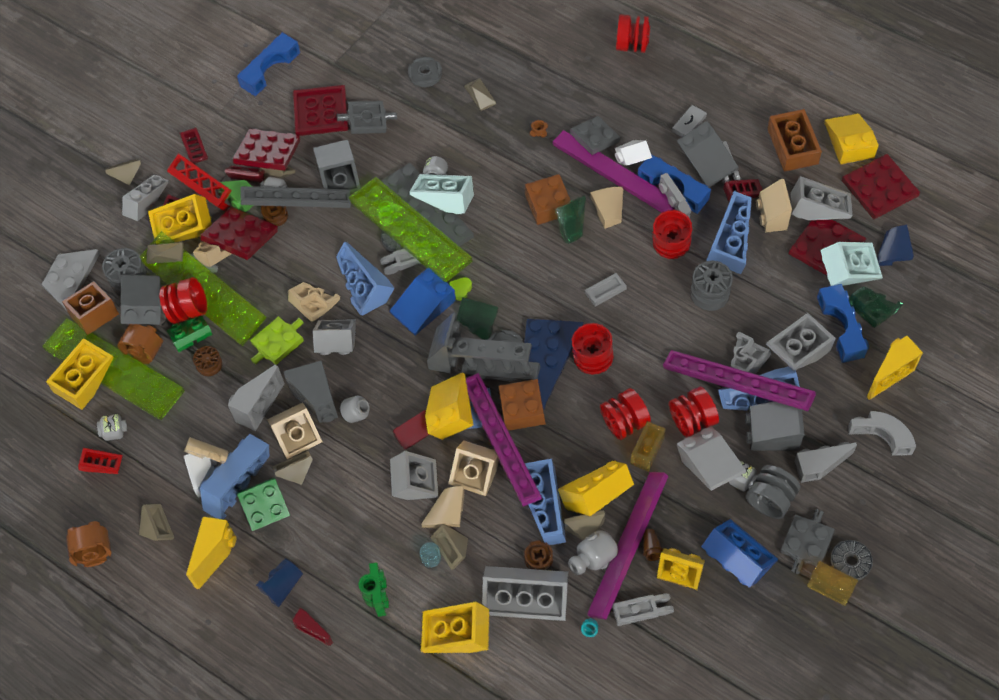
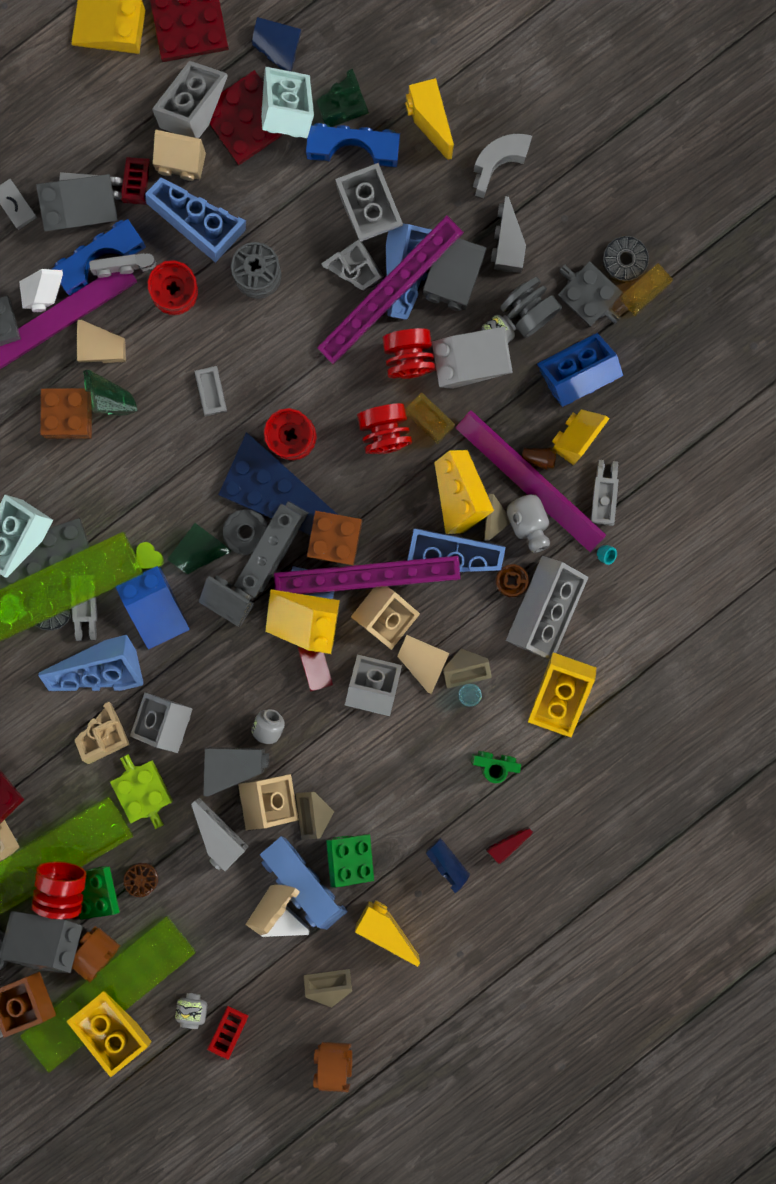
camera: 80 degrees left, 25 degrees up
(794, 140) = (93, 92): dark orange brick -> none

